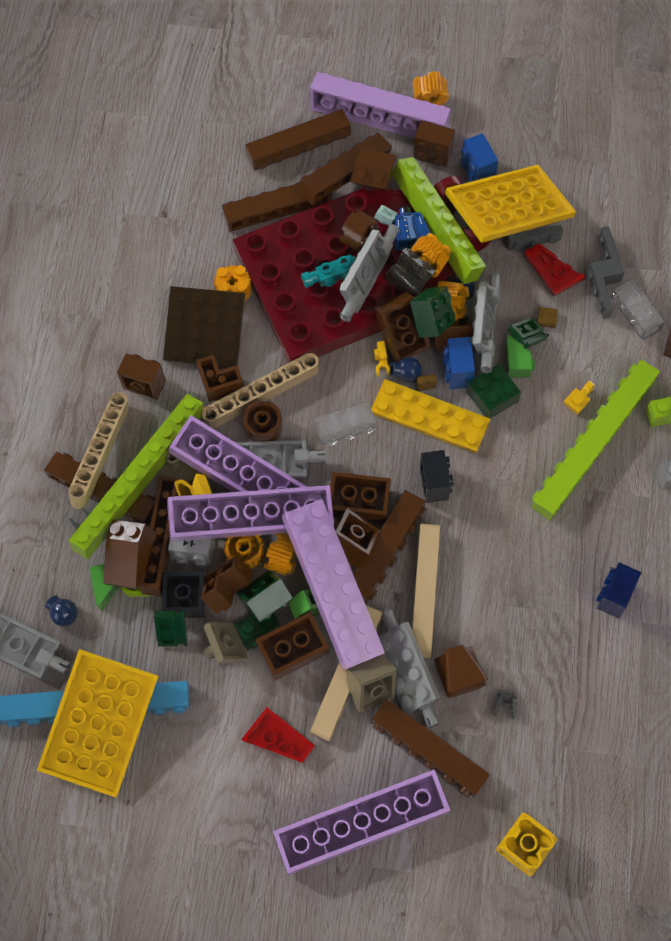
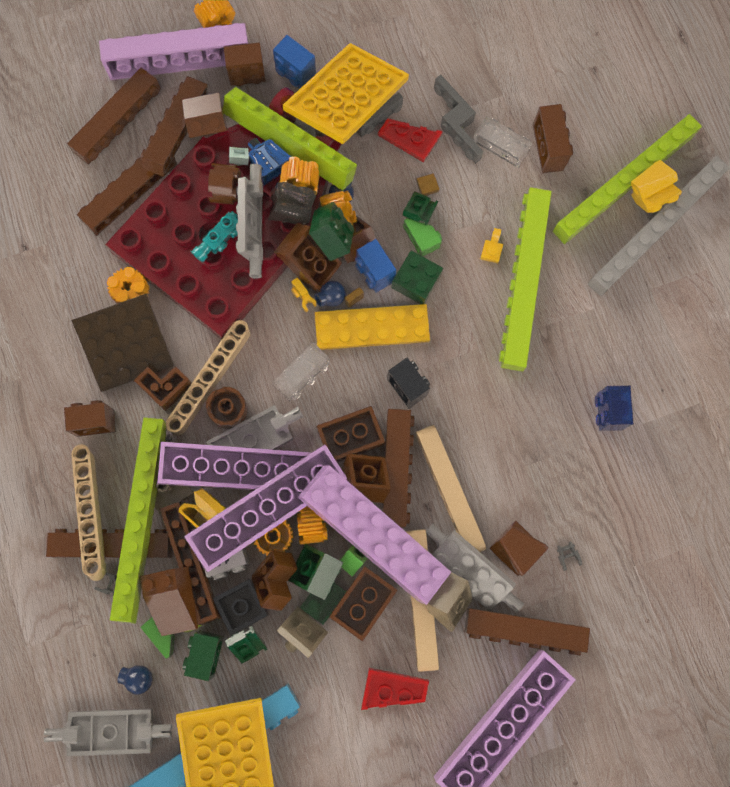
camera: 35 degrees left, 10 degrees up
(129, 617) = (203, 655): none -> dark green brick
(485, 311) = (369, 191): light grey plate -> none
(527, 844) = (650, 672): yellow piece -> none

